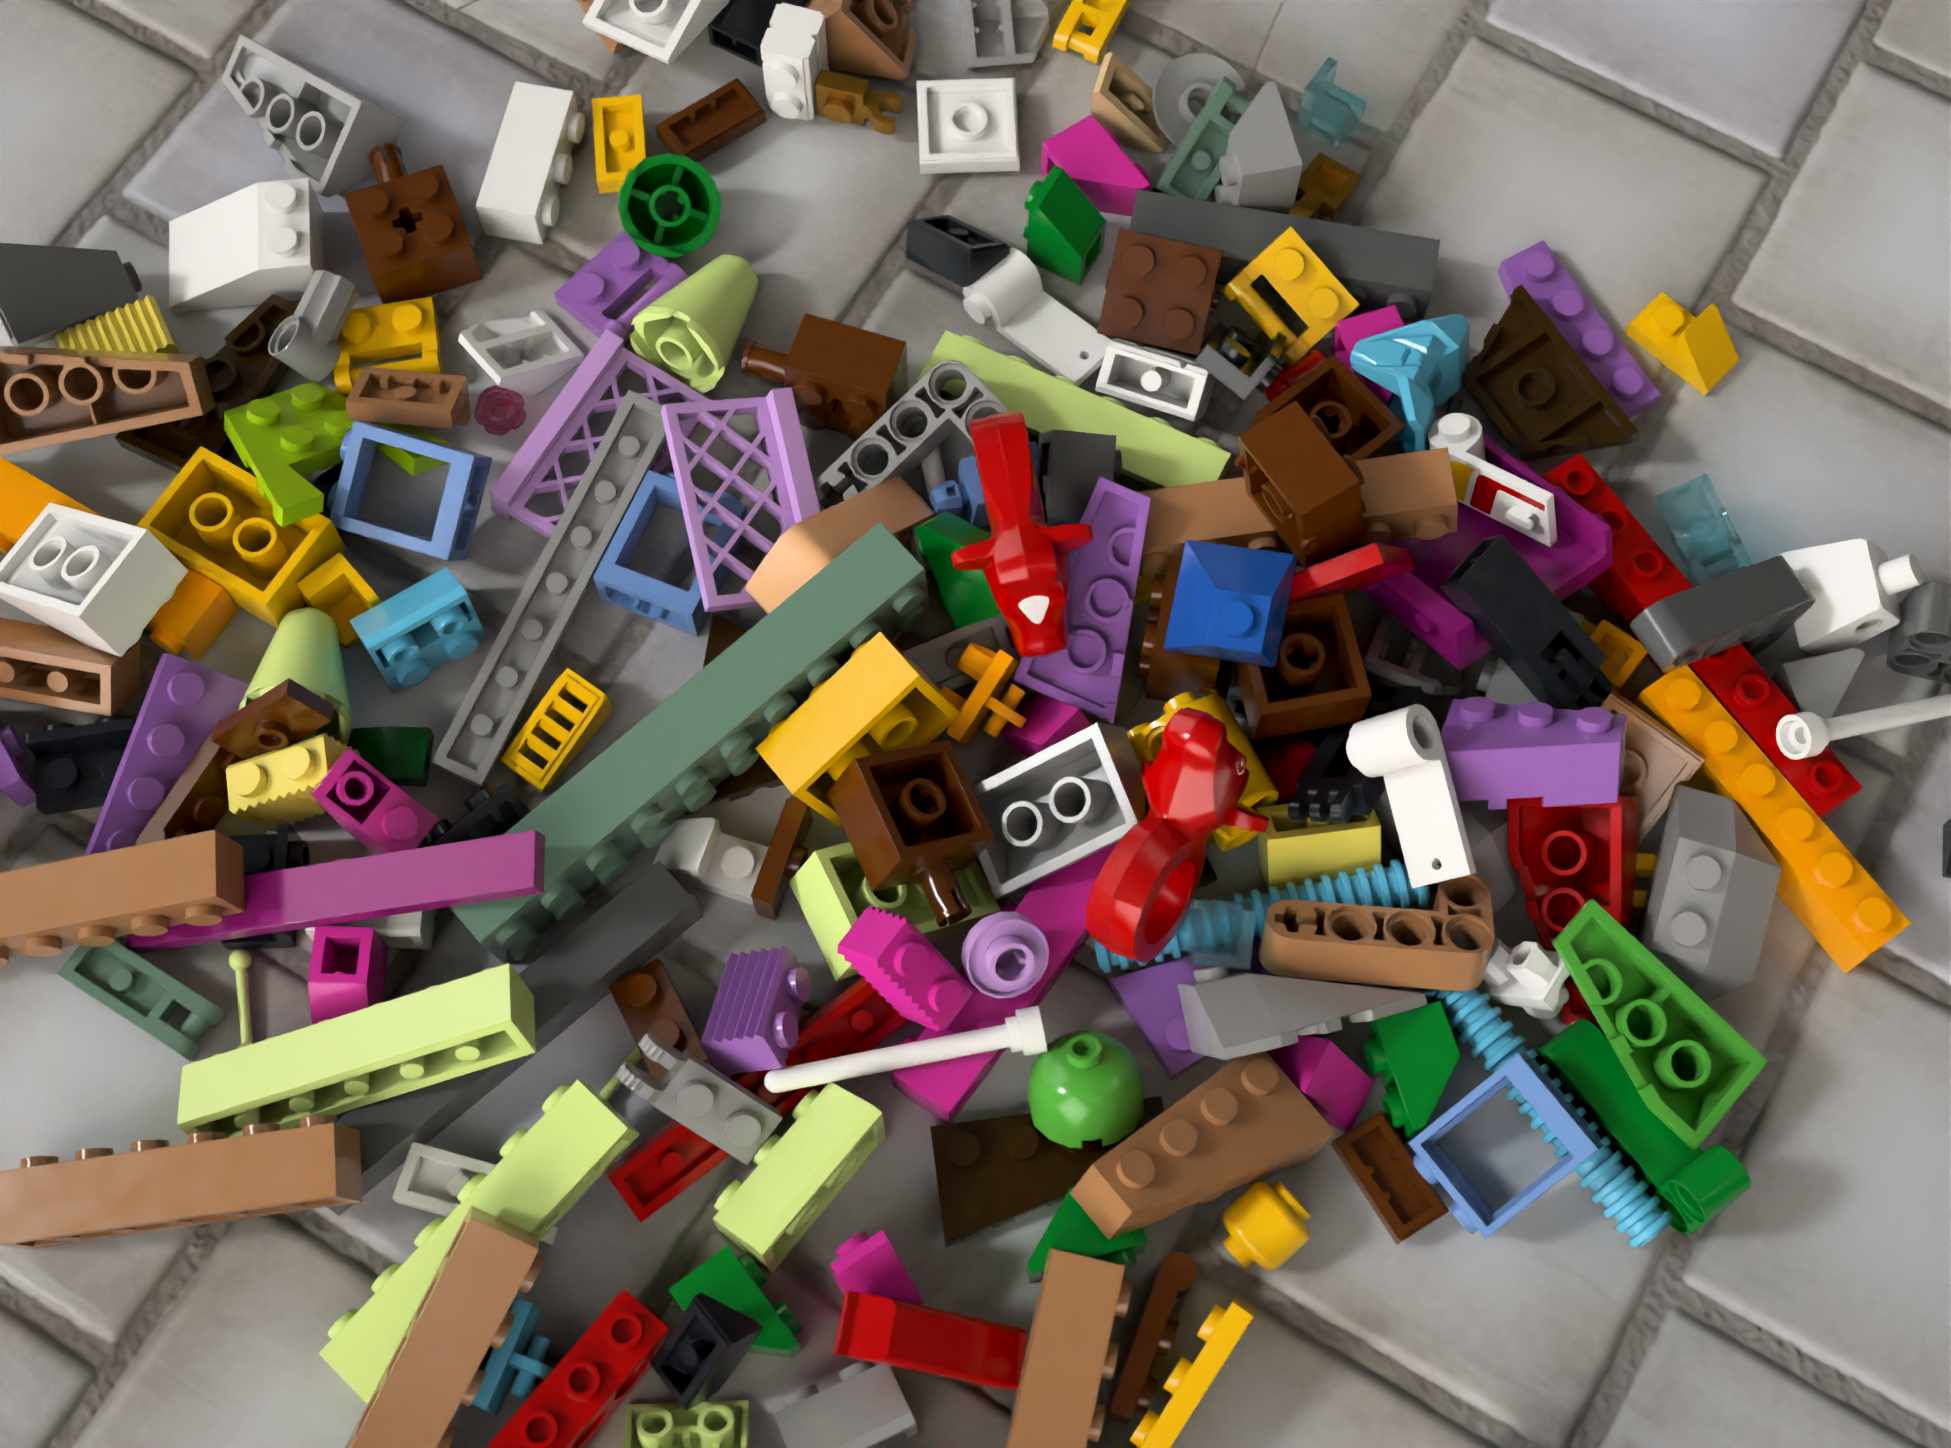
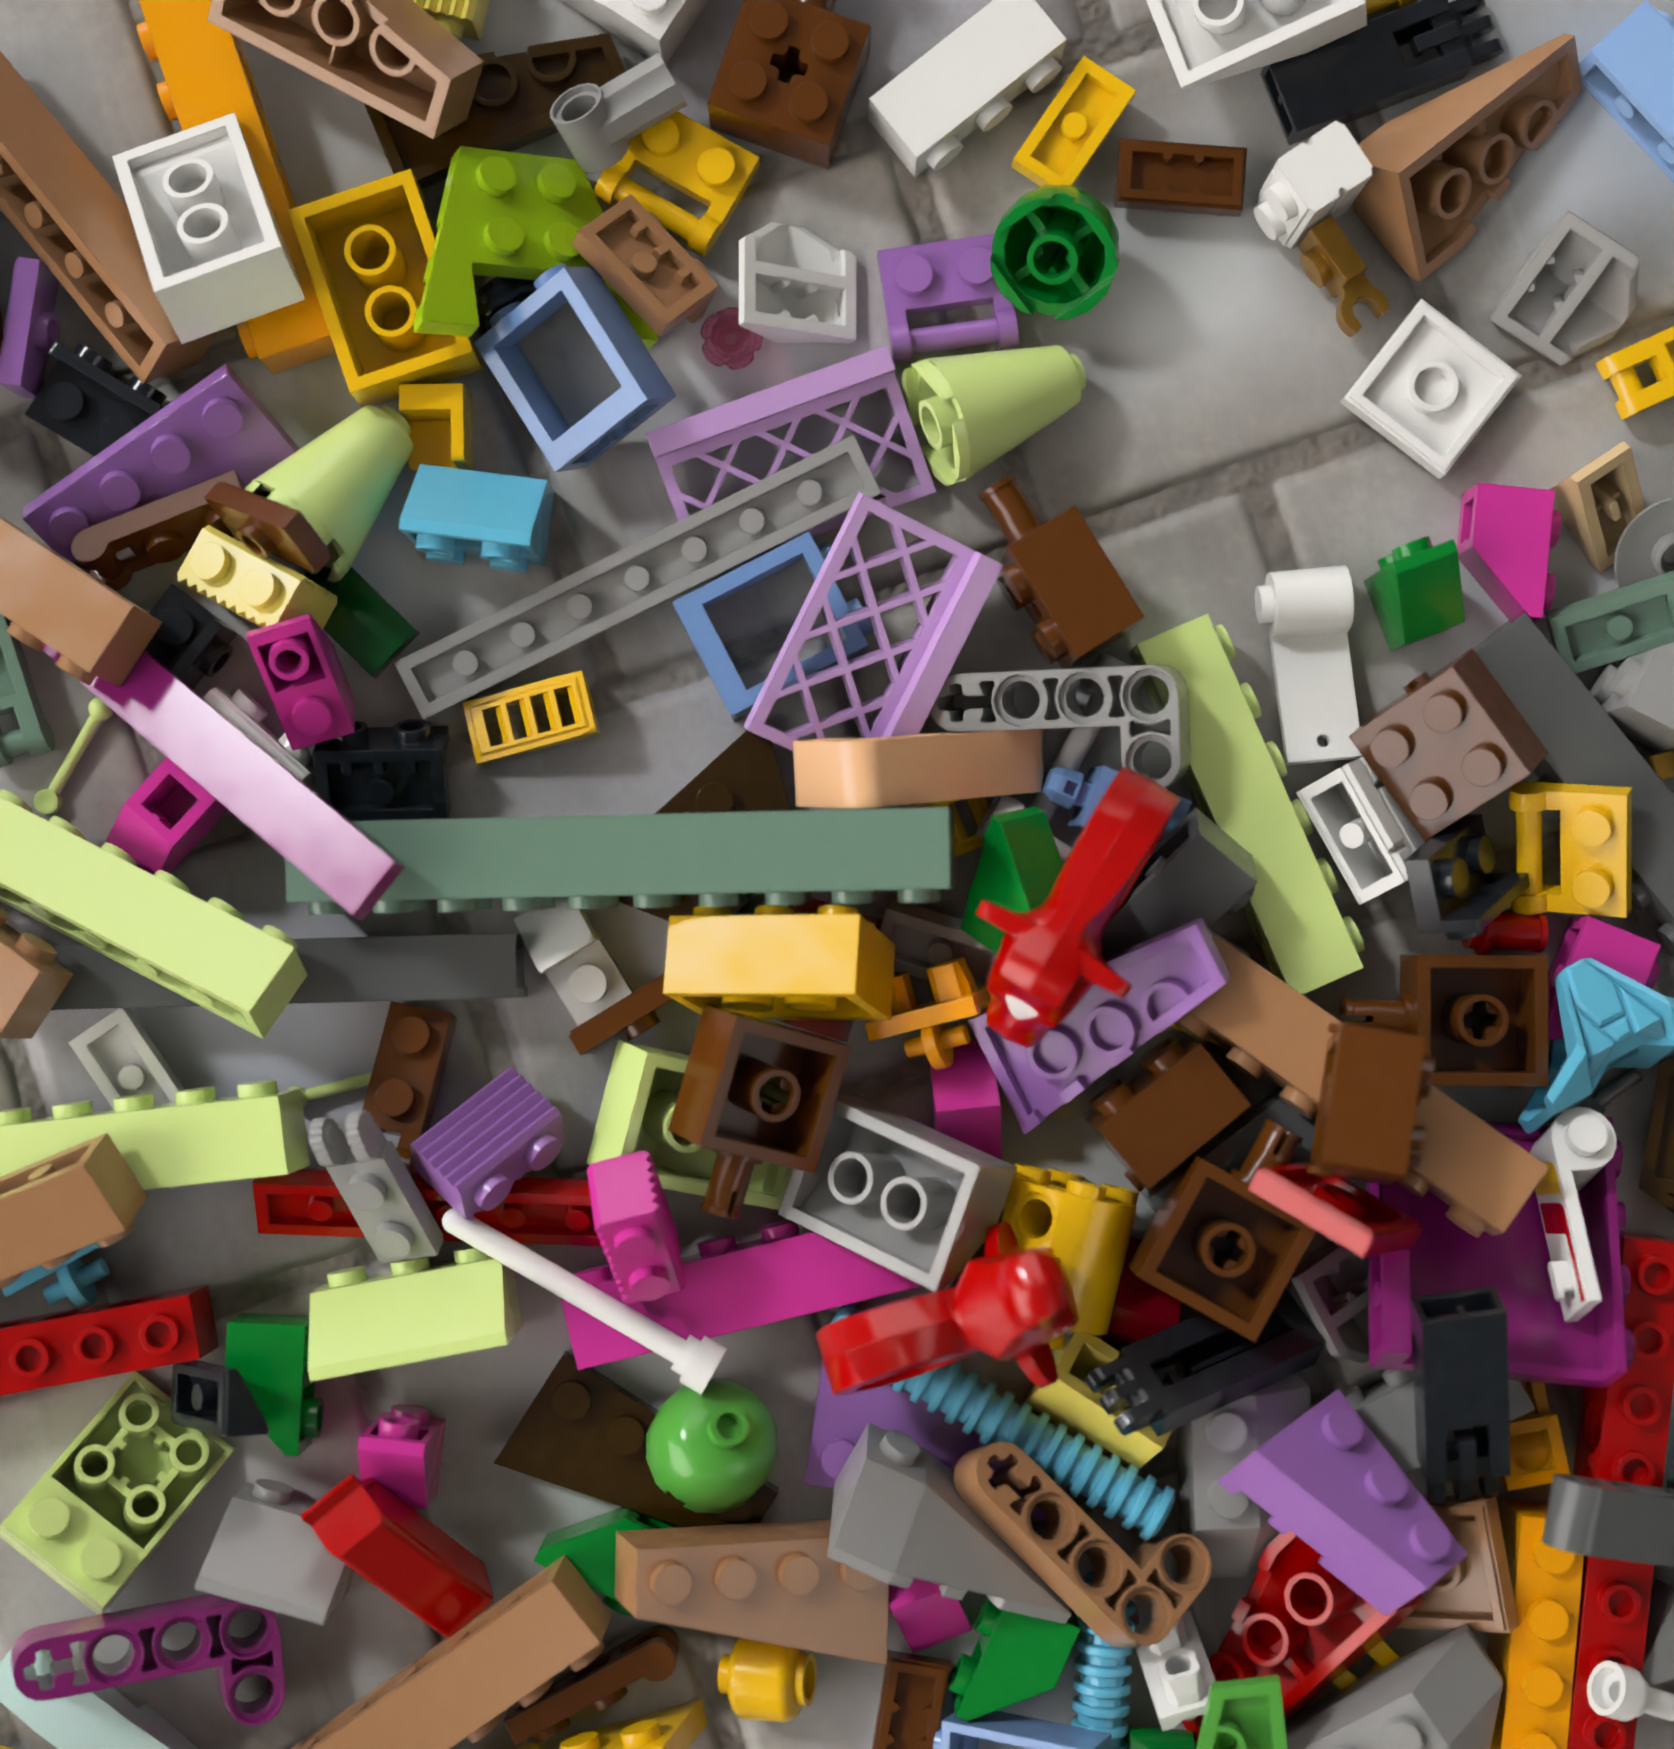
camera: 35 degrees right, 20 degrees up
(953, 248) = (1296, 523): black slope -> none
(1005, 954) = (733, 1286): lavender plate -> none
(1221, 933) = (935, 1425): clear light blue panel -> none
(1230, 603) = (1200, 1155): blue slope -> none
(1418, 781) = (1214, 1467): white door -> none

